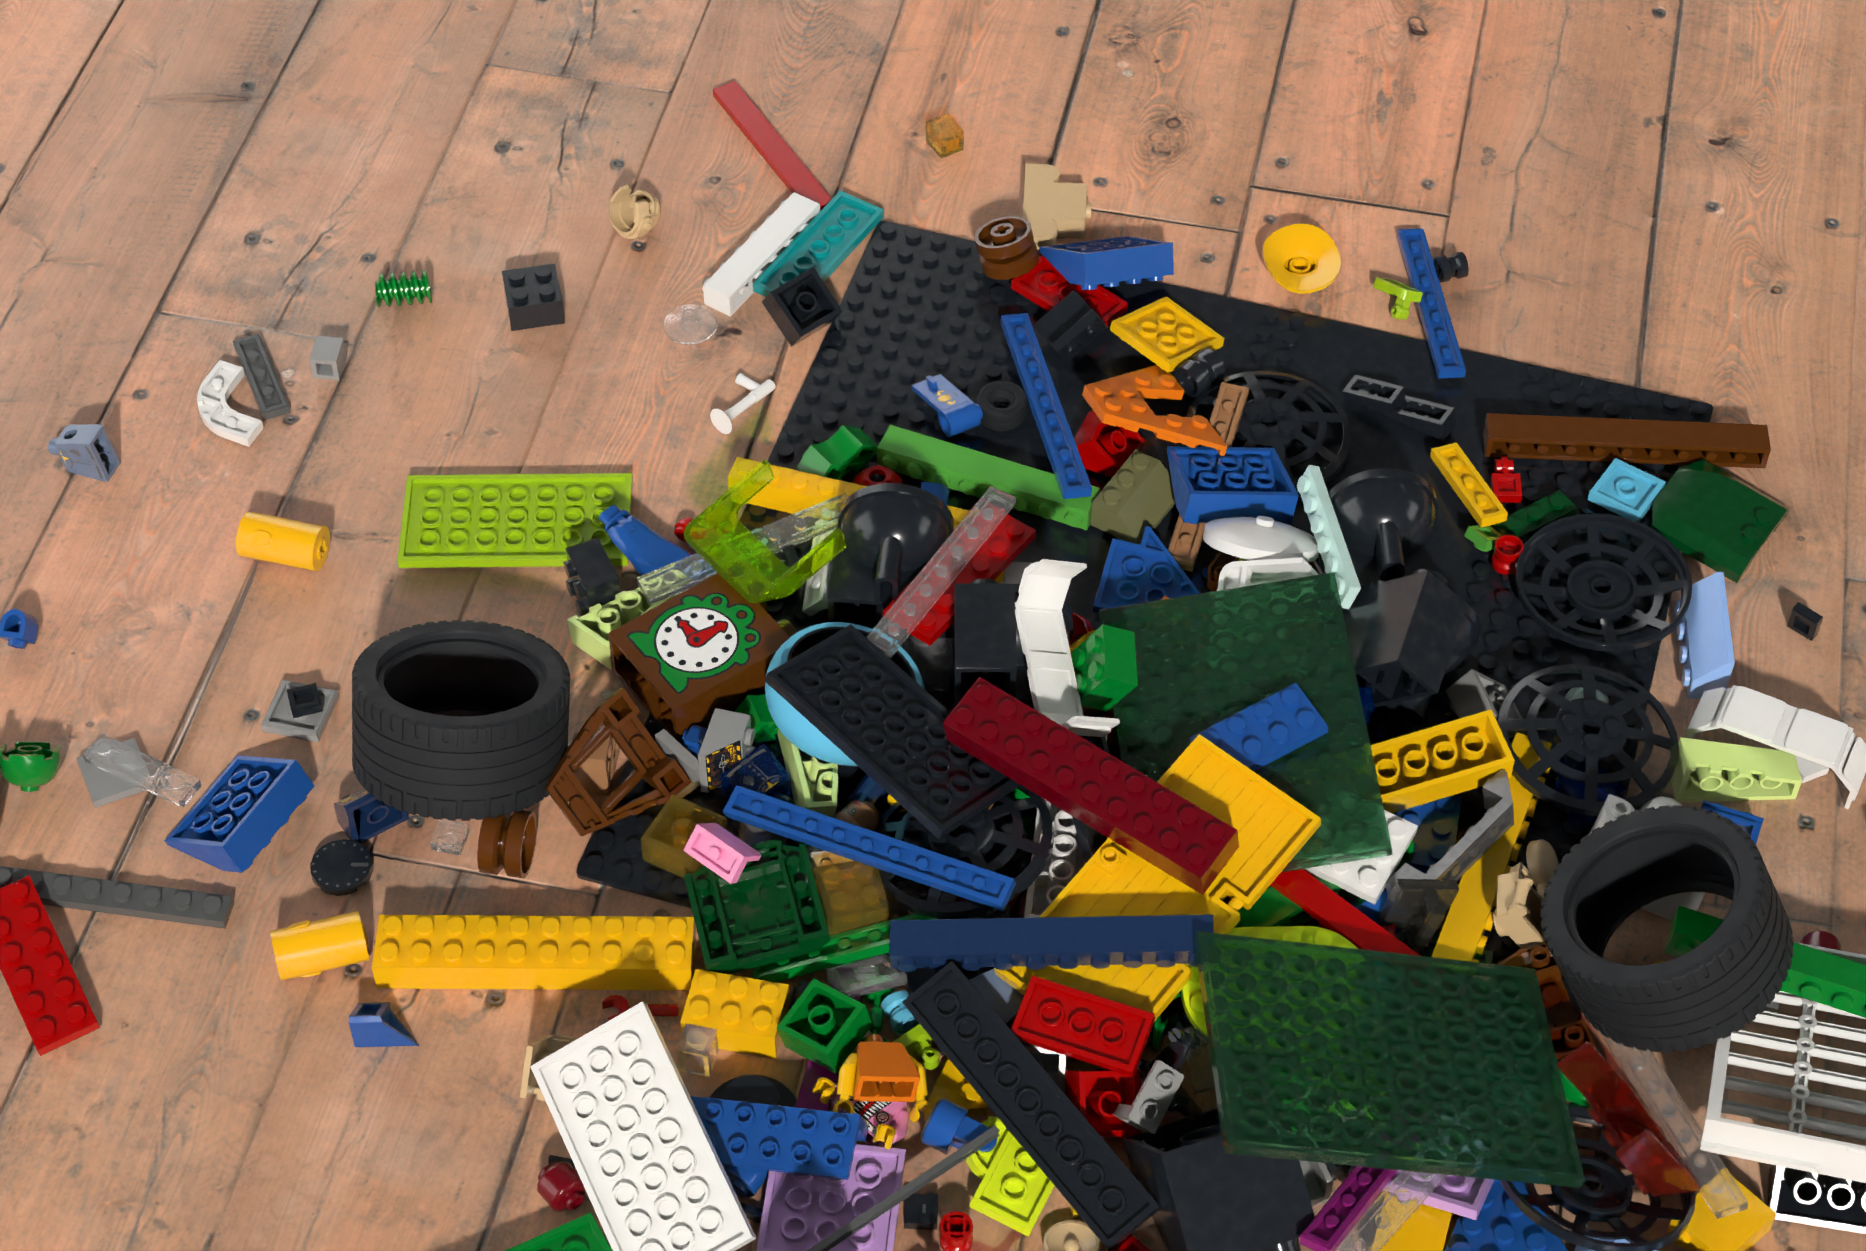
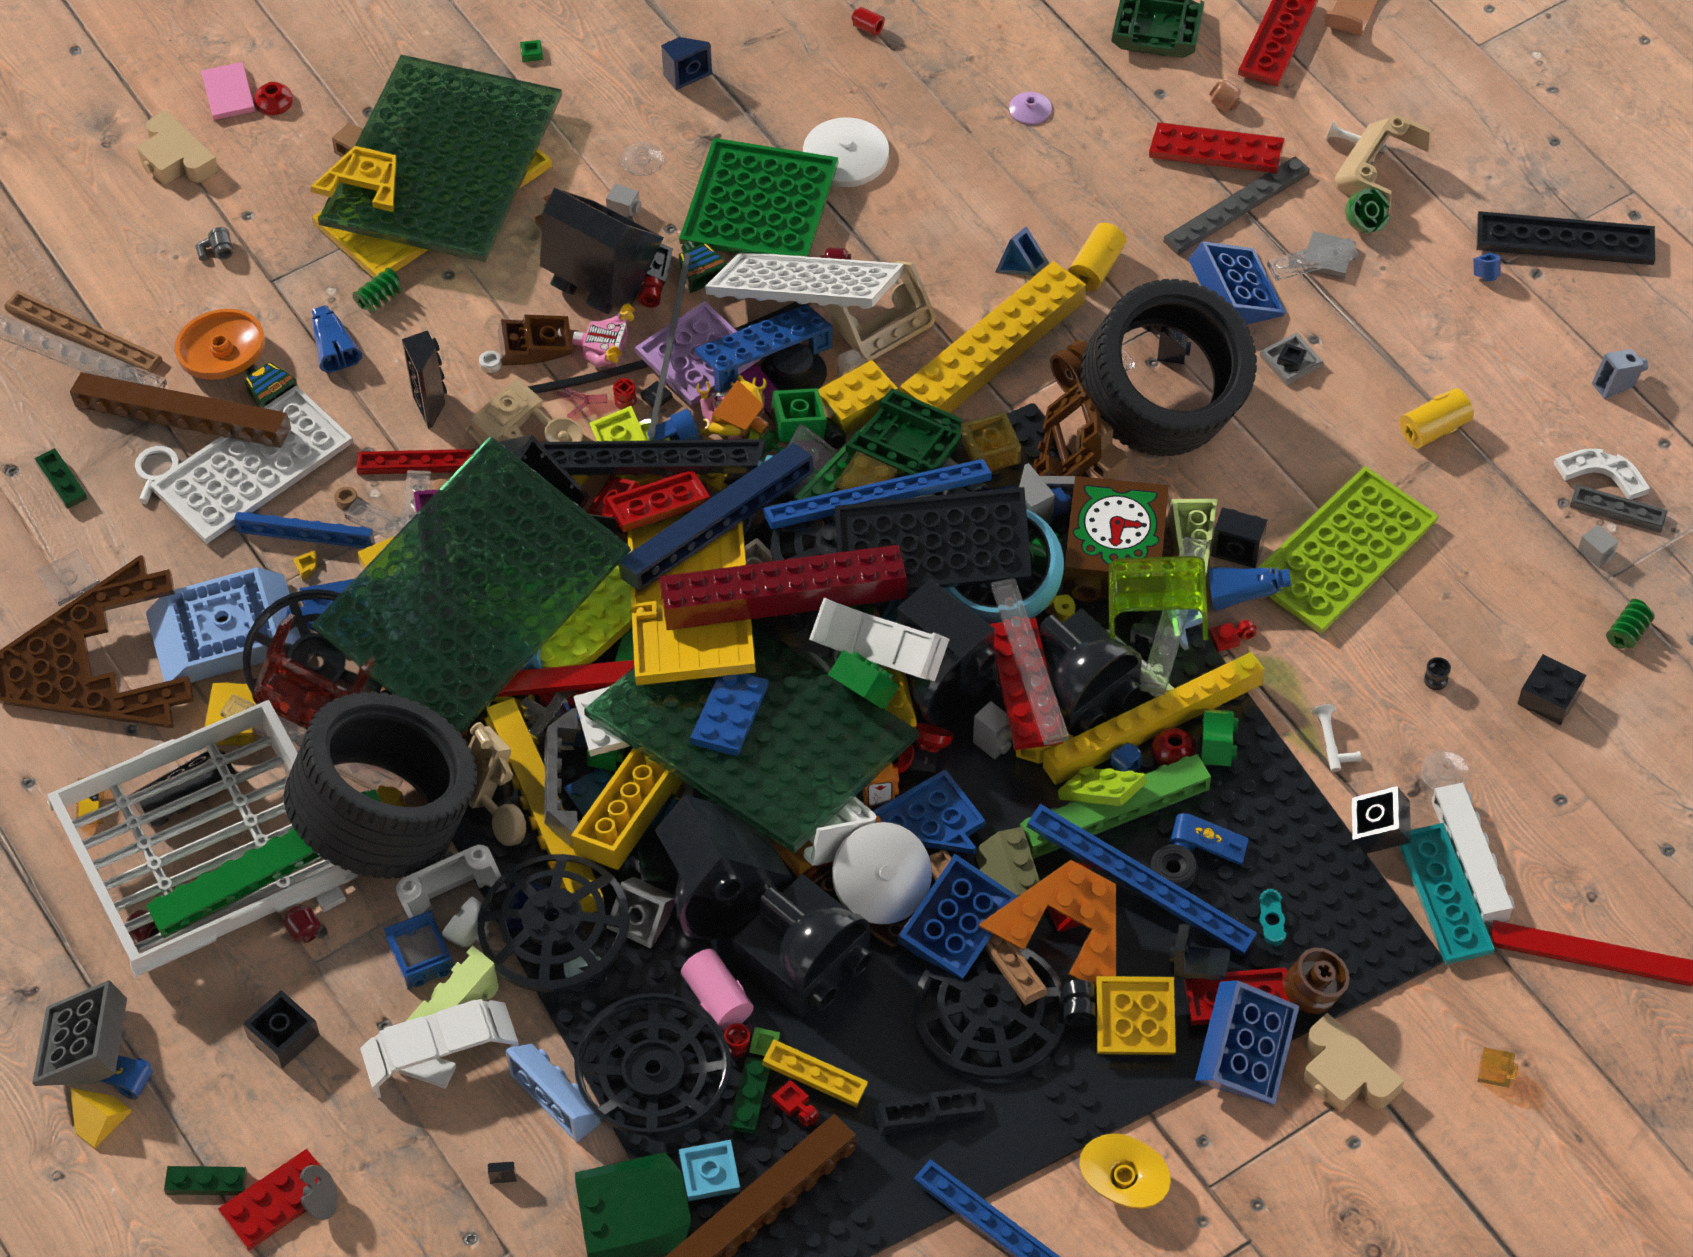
camera: 135 degrees right, 5 degrees up
(117, 1213) = (1030, 108): none -> lavender dish
(595, 375) = (1437, 673): none -> black wheel
(623, 1005) = (917, 363): red piece -> none
(633, 213) = (1584, 804): tan helmet -> none
(720, 851) = (952, 435): bright pink panel -> none
(983, 316) = (1271, 904): none -> teal piece
(984, 464) = (1102, 786): none -> lime plate
(1151, 1099) = (588, 498): light grey bracket -> none
(1328, 534) = (828, 886): light aqua plate -> none
(1404, 294) = (1035, 1214): lime piece -> none
(1490, 589) = (717, 988): none -> bright pink piece

